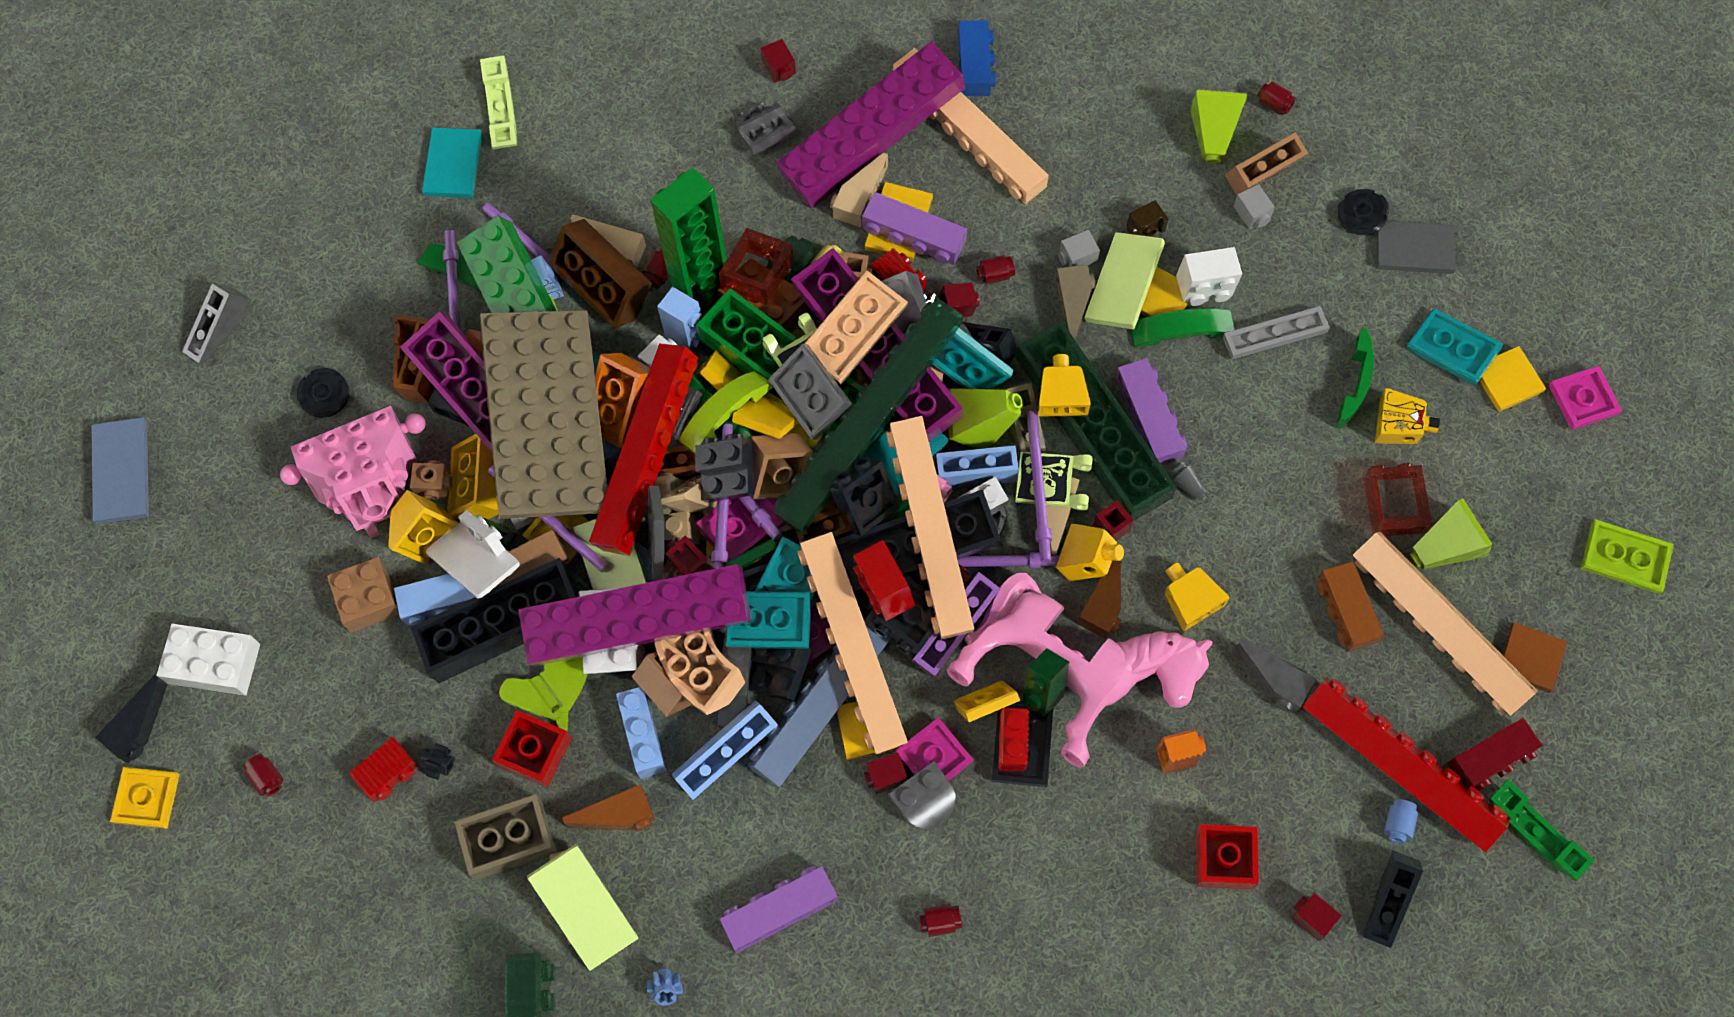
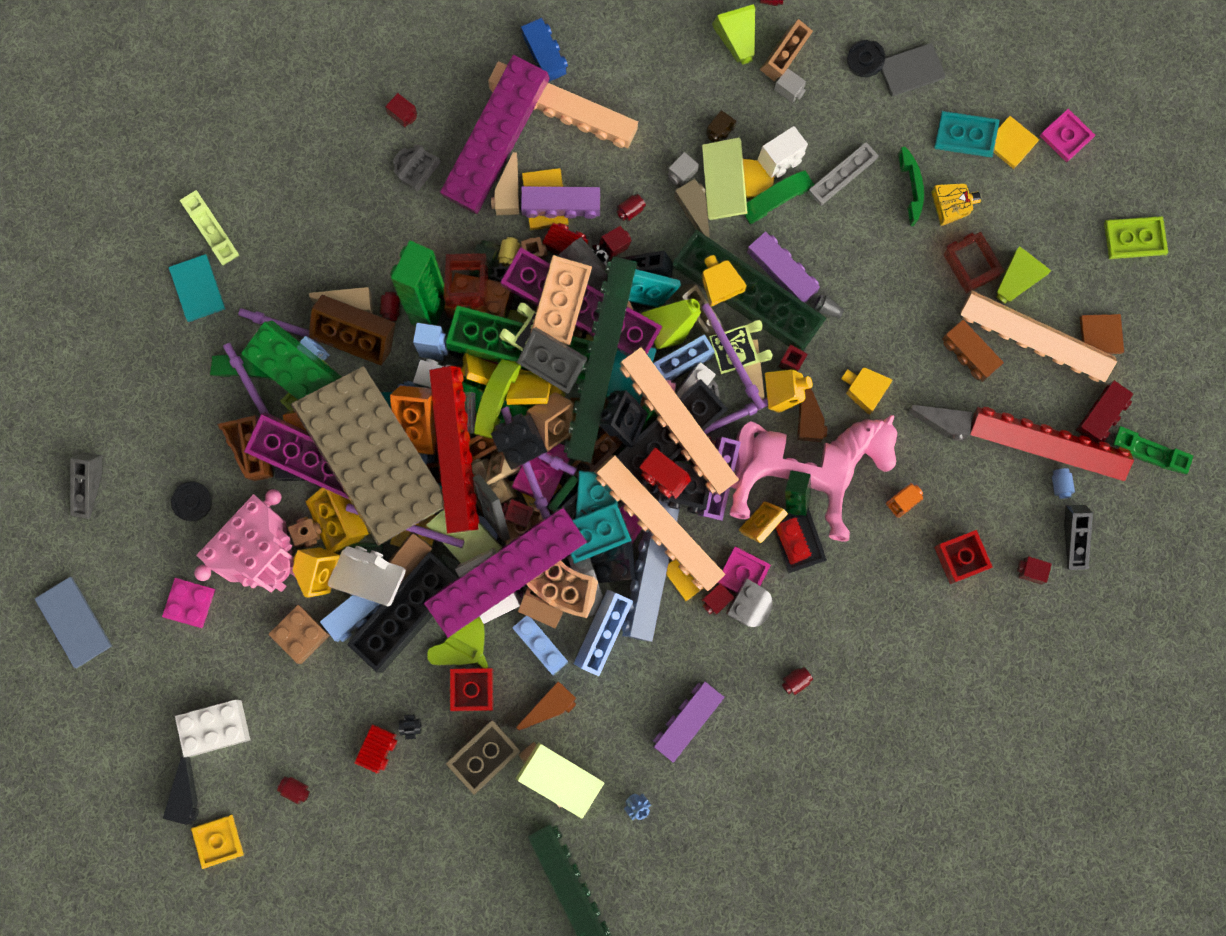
camera: 30 degrees left, 10 degrees up
(259, 505) = (188, 603): none -> dark pink plate

